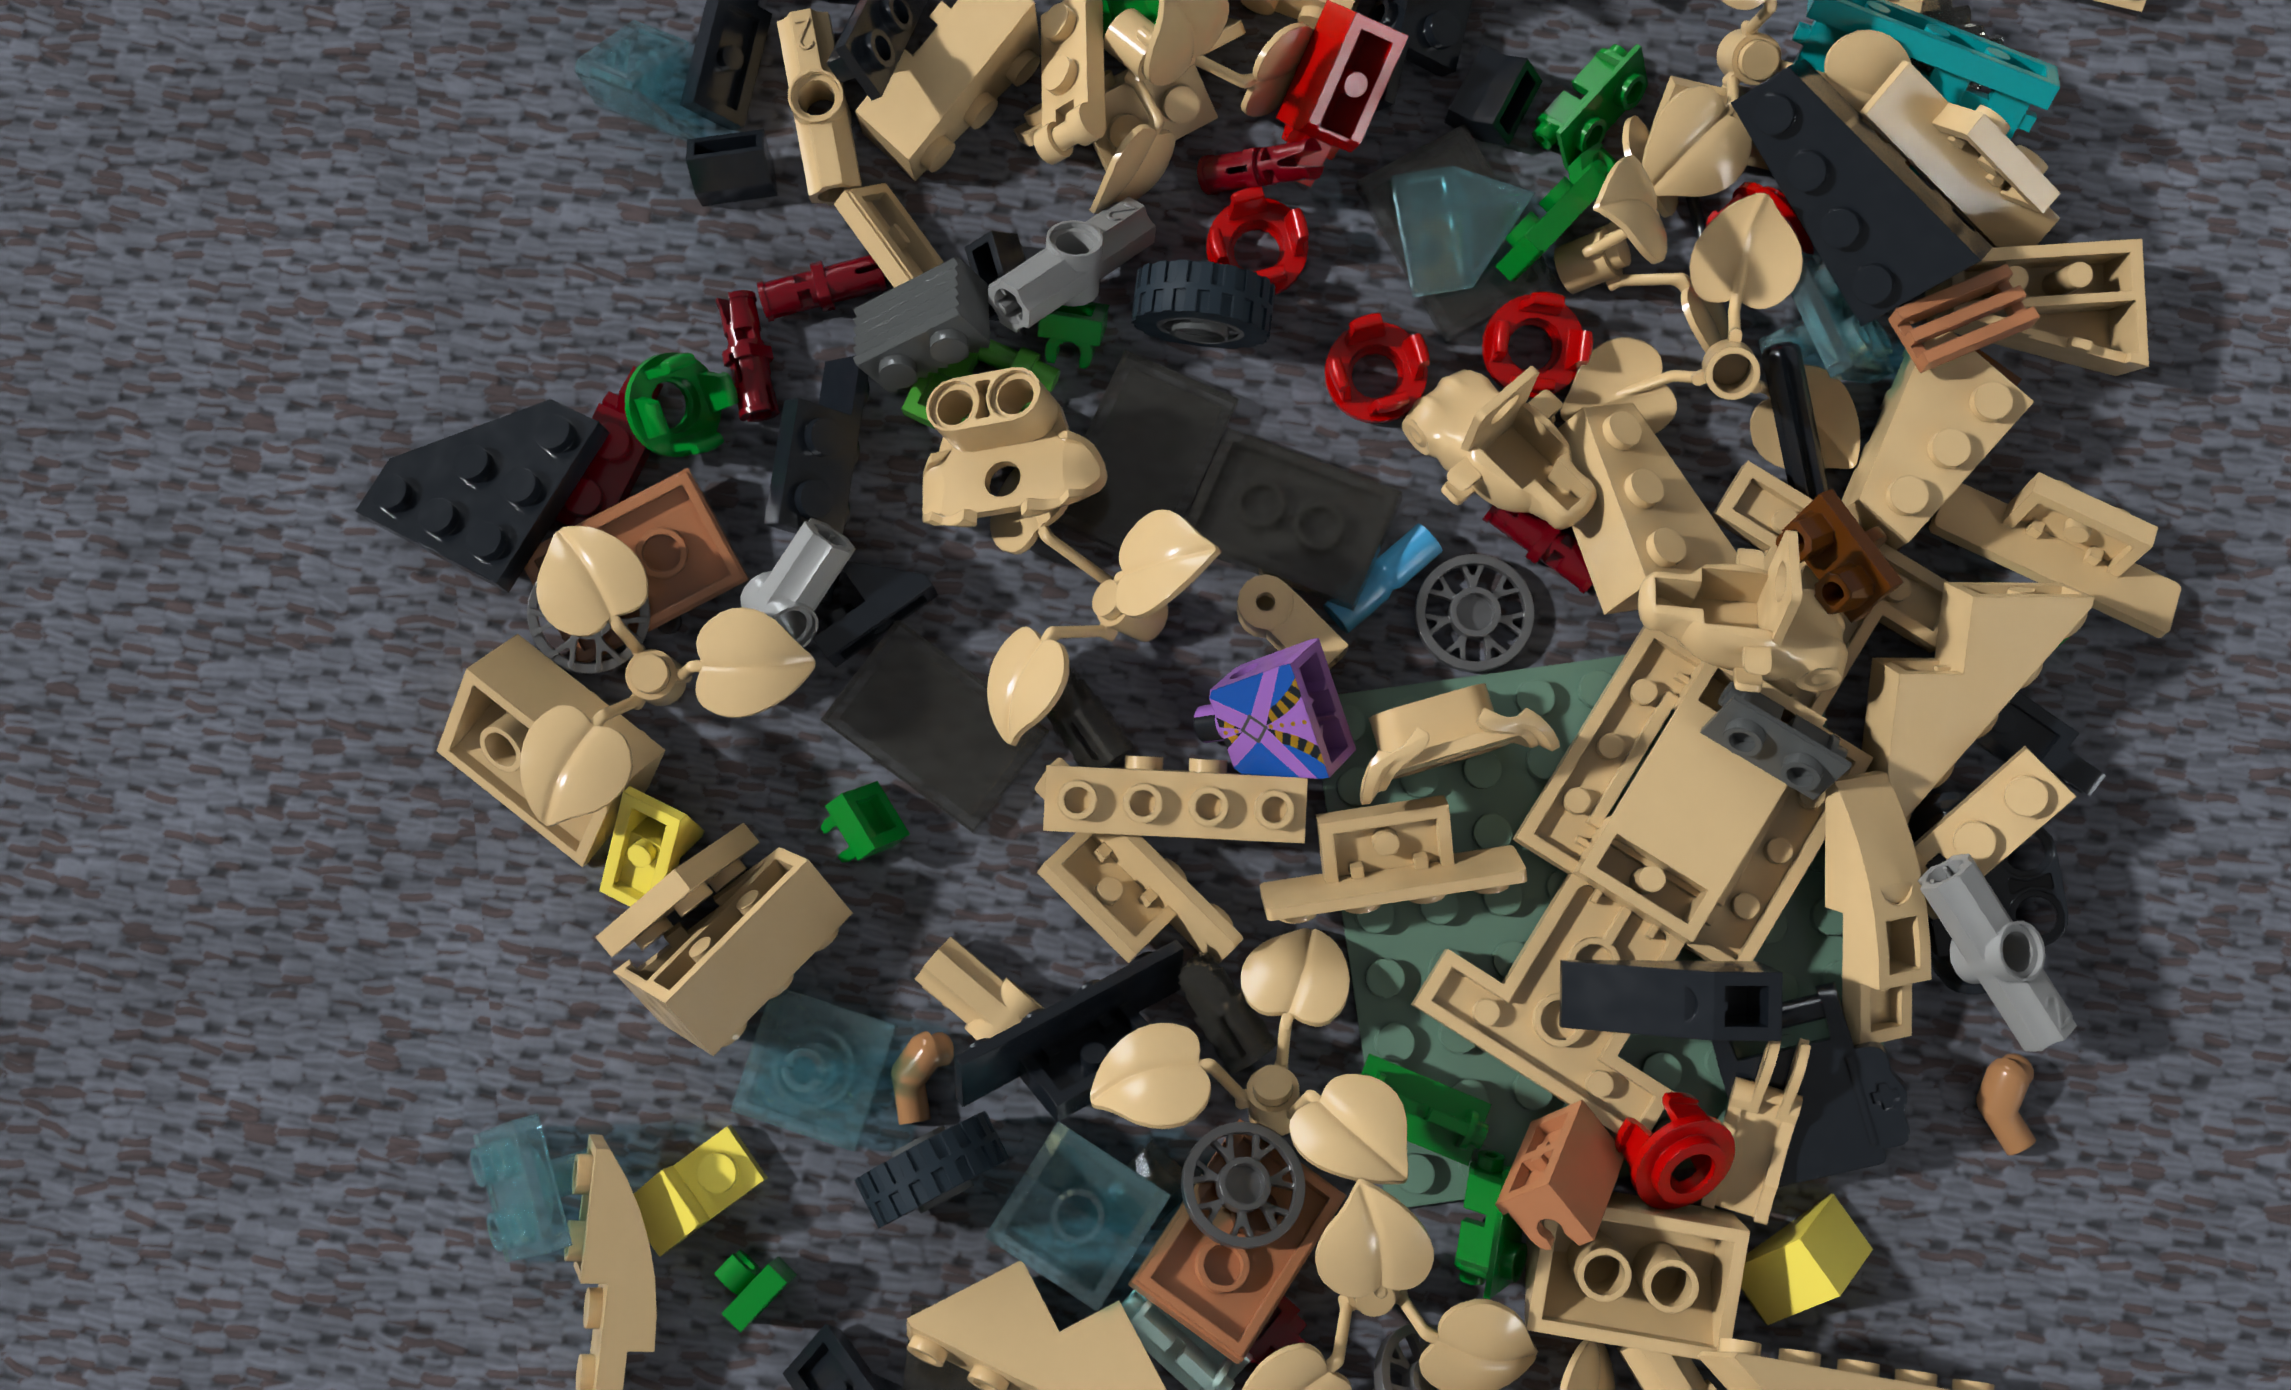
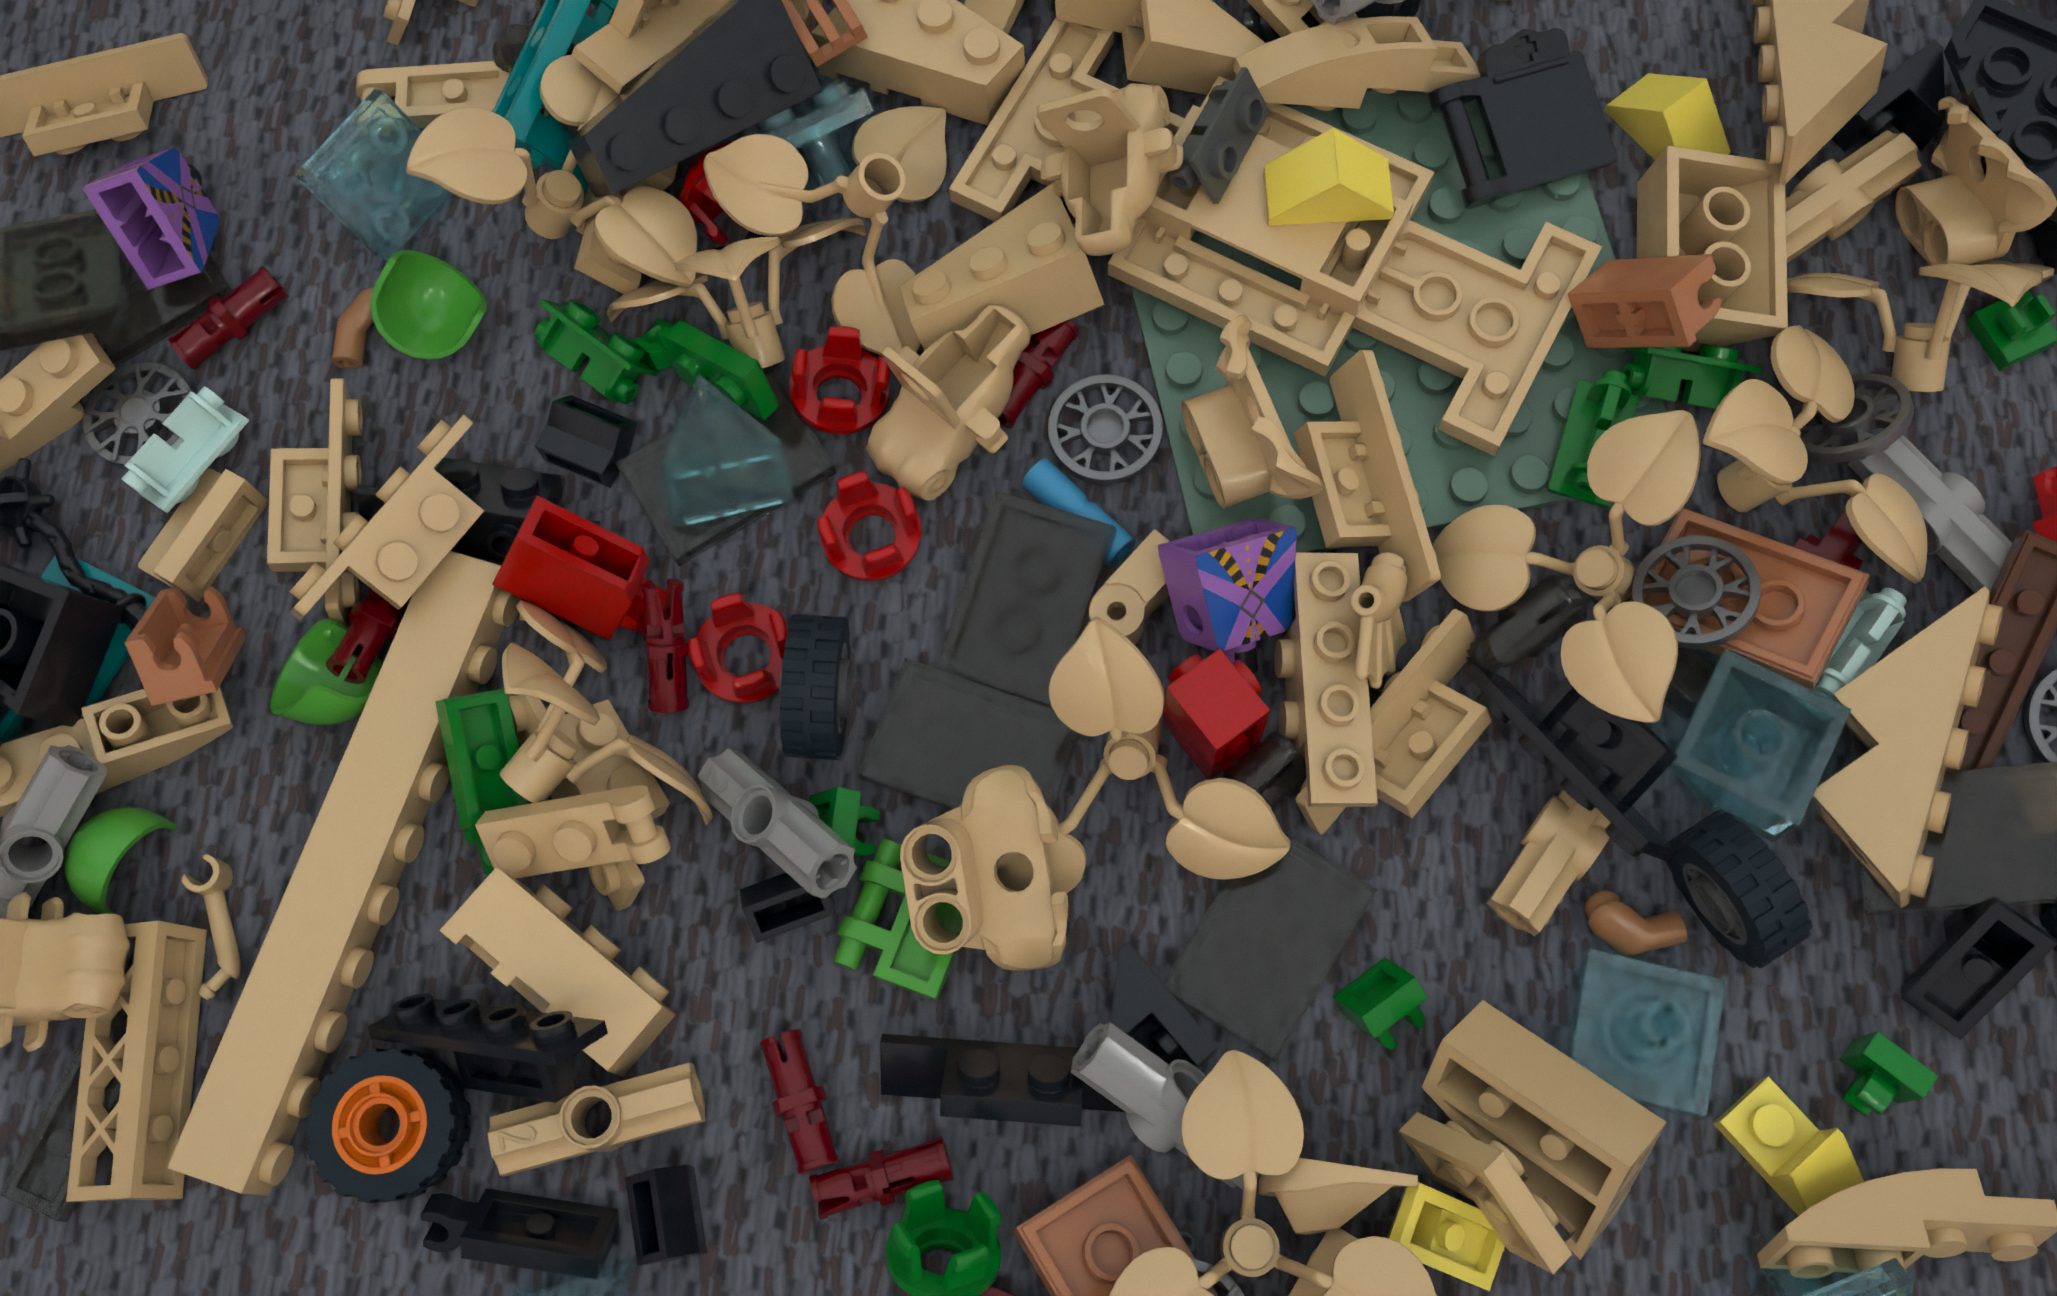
camera: 90 degrees left, 10 degrees down
(693, 750) = (1328, 1194): none -> tan piece
(887, 232) = (748, 1024): tan tile -> none
(922, 325) = (849, 974): dark grey brick -> none
(1150, 683) = (1214, 711): none -> red brick
(1229, 855) = (1381, 622): none -> tan arm
(1657, 1154) = (1615, 204): red piece -> none
(1673, 998) = (1469, 210): black slope -> none
(1714, 851) = (1328, 183): none -> light yellow slope
(1762, 1129) = (1565, 154): tan arm -> none
(1794, 418) = (912, 150): black axle -> none
(1843, 557) = (1052, 77): reddish brown hips -> none

